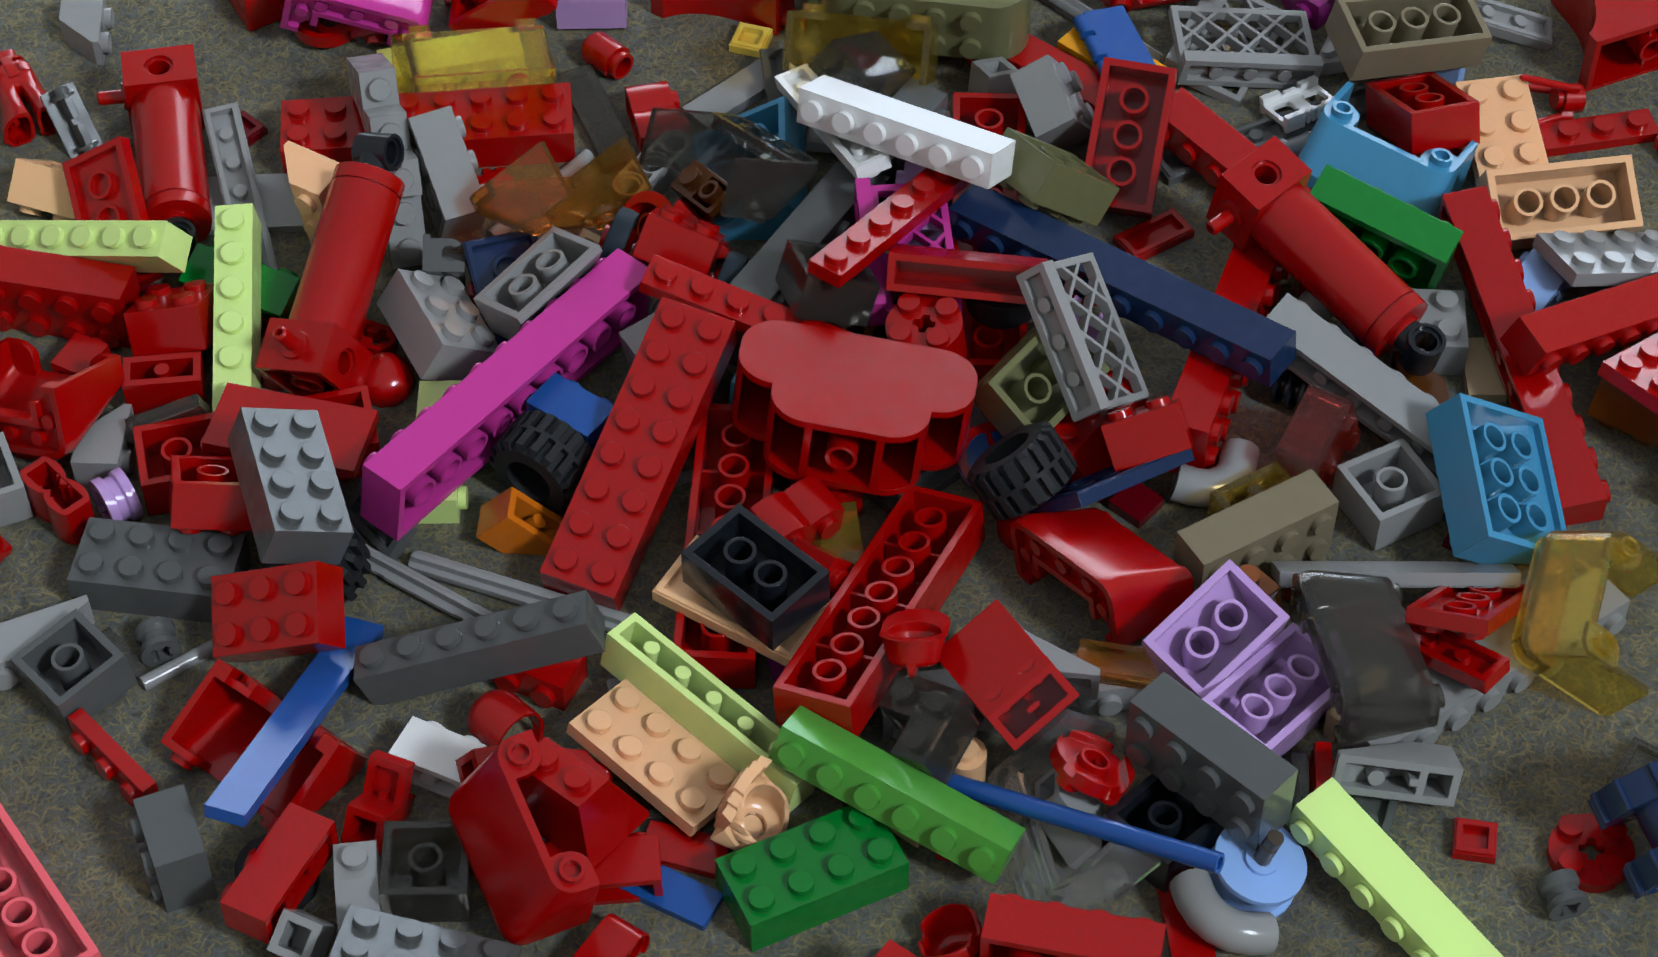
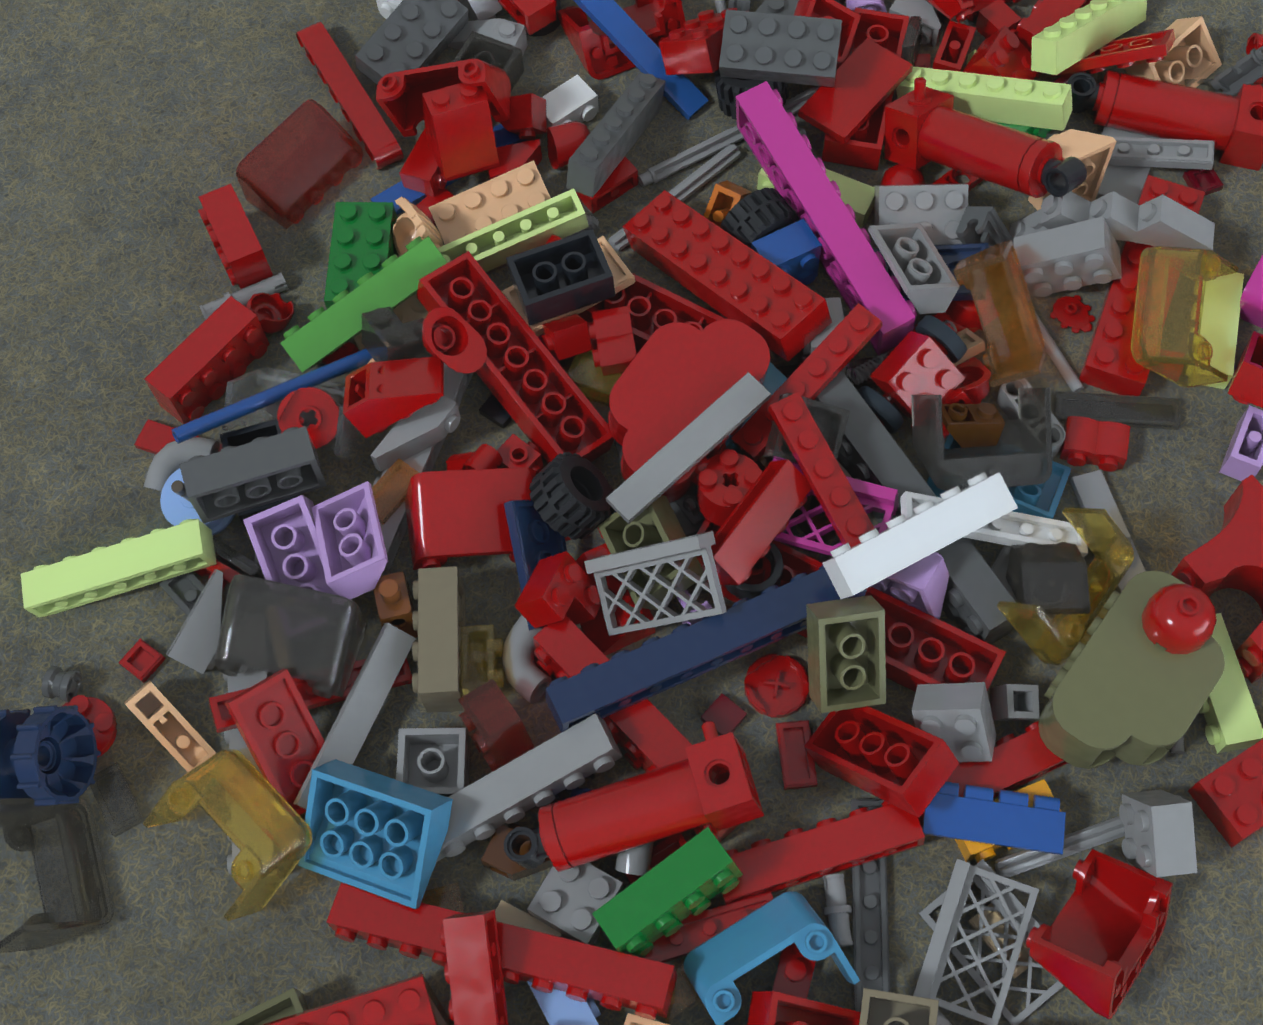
camera: 120 degrees right, 15 degrees up
(383, 799) = (546, 66): red brick -> none
(607, 55) = (1183, 438): red brick -> none
(750, 39) = (1165, 555): light yellow tile -> none
(920, 350) = (688, 448): none -> light grey tile
(992, 576) = (520, 454): none -> red brick
(1030, 594) = (483, 458): none -> red piece
(1295, 98) = (896, 958): white piece -> none
(1525, 764) = (169, 726): none -> light nougat slope

